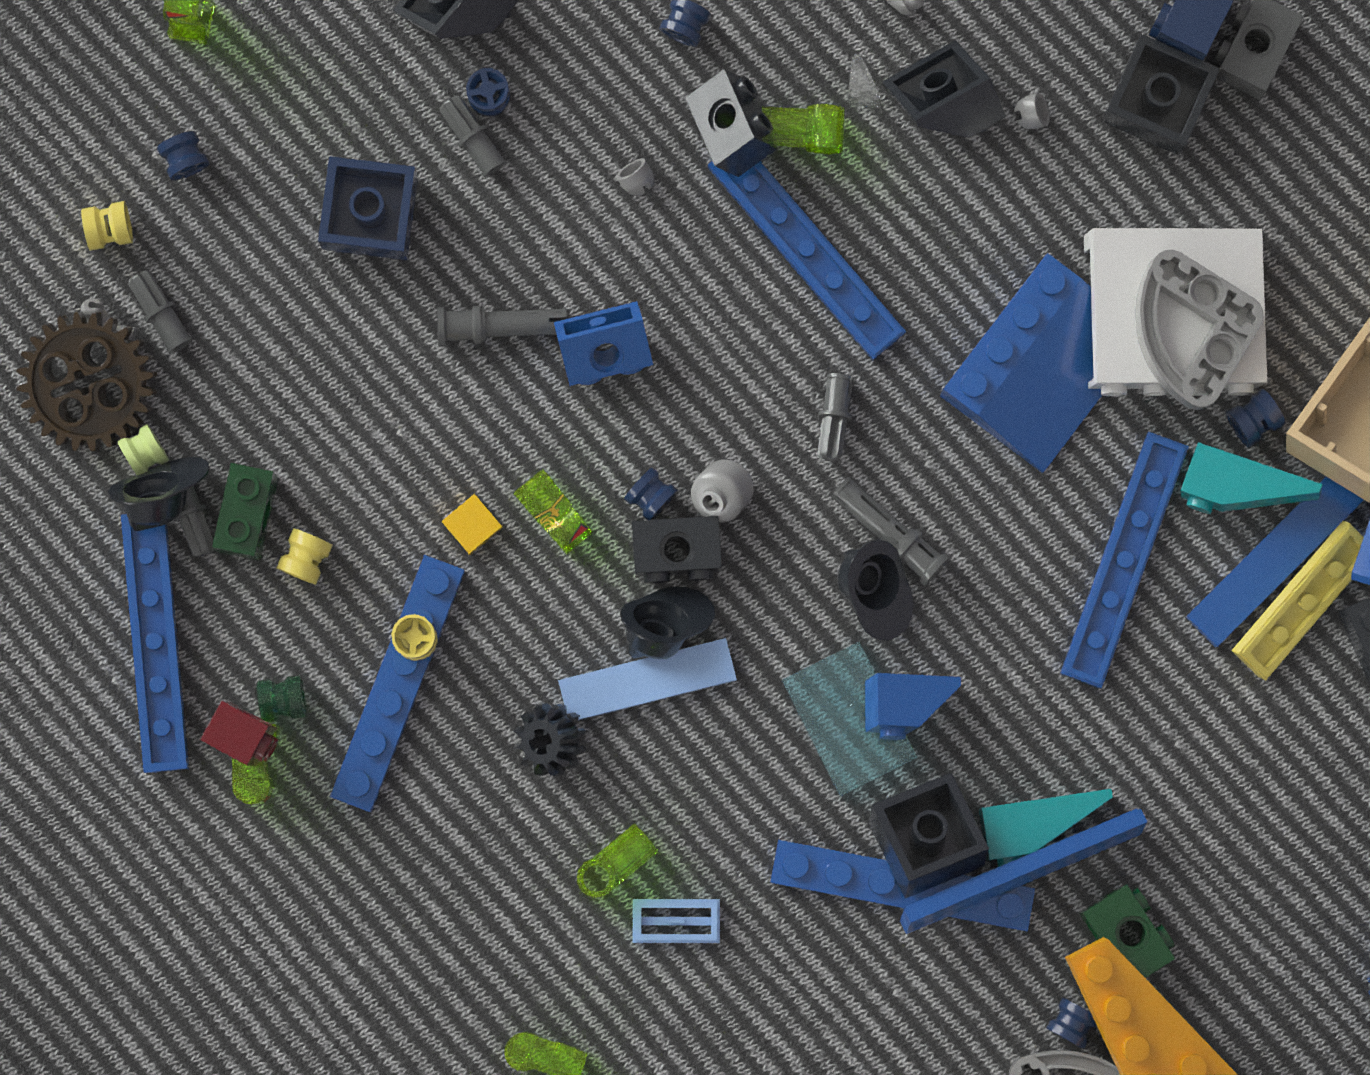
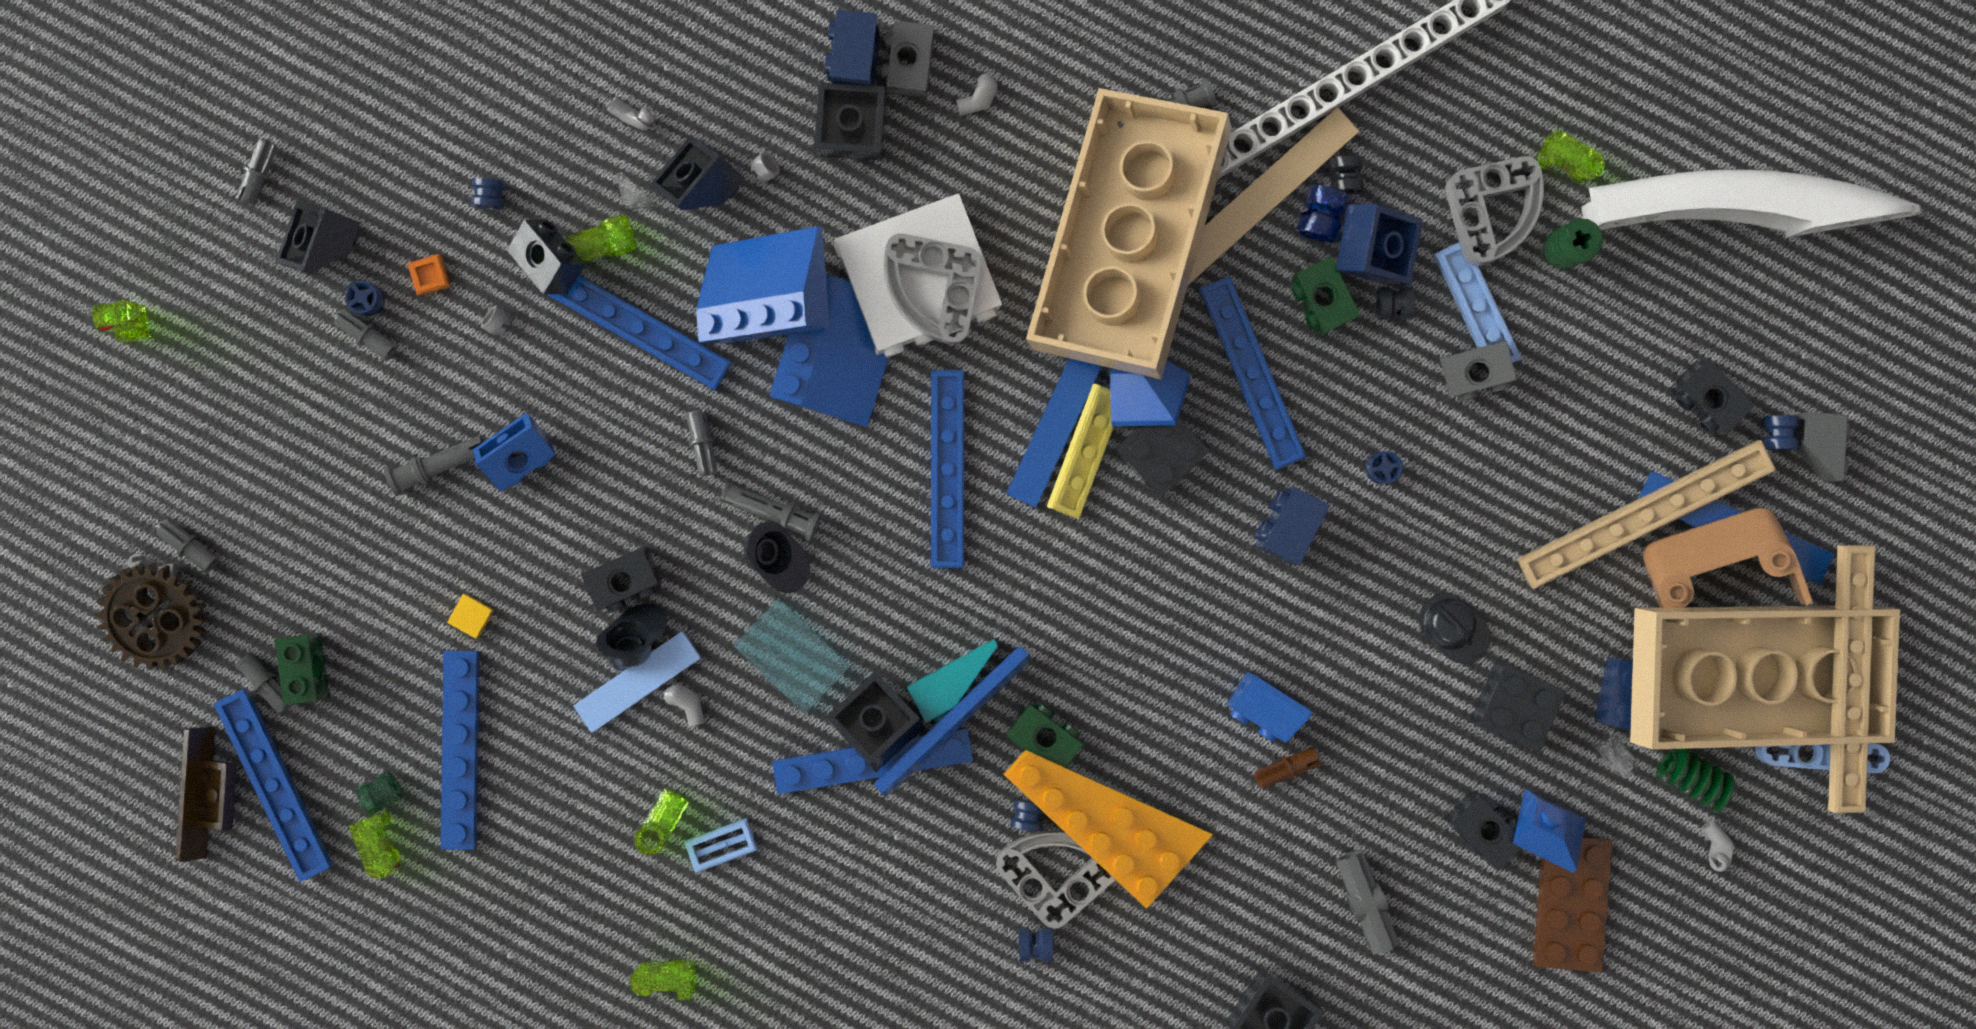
camera: 20 degrees left, 5 degrees up
(68, 623) = (205, 794): none -> dark brown bracket
(97, 226) = (124, 497): light yellow wheel -> none
(143, 450) = (212, 651): yellowish green wheel -> none
(159, 493) = (231, 681): black piece -> none
(183, 155) = (160, 426): dark blue wheel -> none
(240, 734) = (349, 836): dark red brick -> none
(304, 556) = (357, 684): light yellow wheel -> none
(368, 208) = (306, 415): dark blue brick -> none
(413, 631) = (447, 717): light yellow wheel -> none
(552, 511) = (523, 585): clear neon green leg -> none
(565, 737) = (581, 751): black gear -> none
(575, 92) = (429, 275): none -> orange tile
(650, 494) = (589, 547): dark blue wheel -> none
(700, 725) = (687, 700): none -> light grey arm
(722, 490) = (638, 527): light grey head -> none
(904, 701) = (825, 631): blue slope -> none
(985, 257) = (764, 288): none -> blue slope
(1236, 483) = (1005, 385): teal slope -> none
(1255, 418) = (1004, 332): dark blue wheel -> none
(1329, 124) = (981, 98): none -> light grey arm

